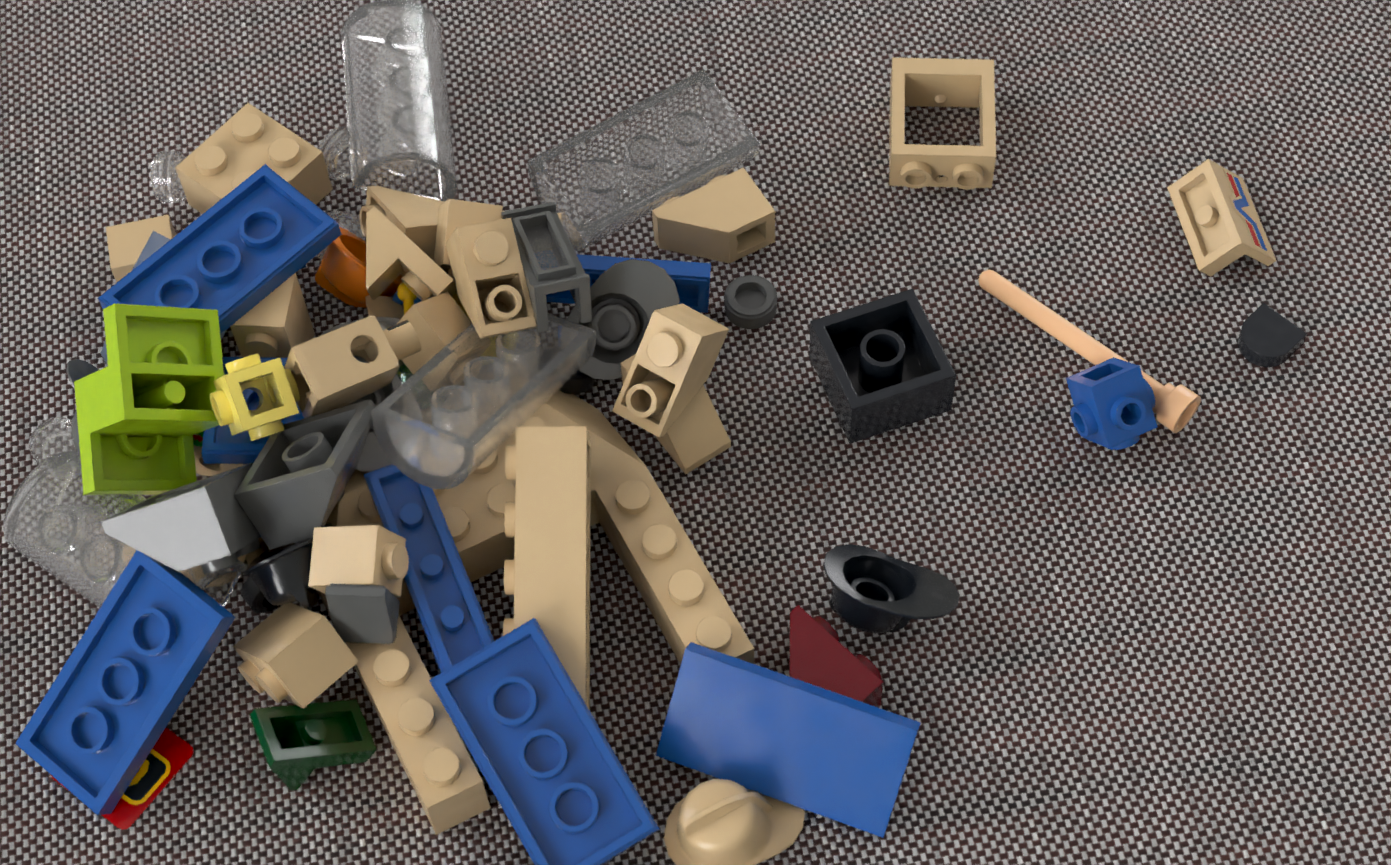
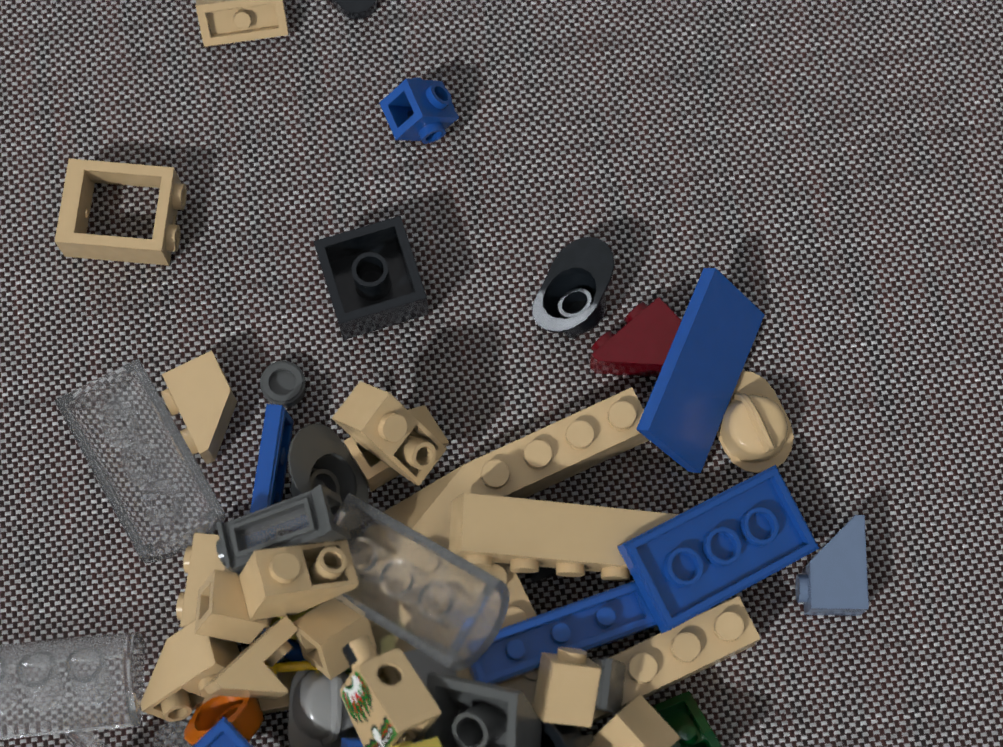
camera: 90 degrees left, 15 degrees up
(1173, 404) = (413, 65): light nougat piece -> none

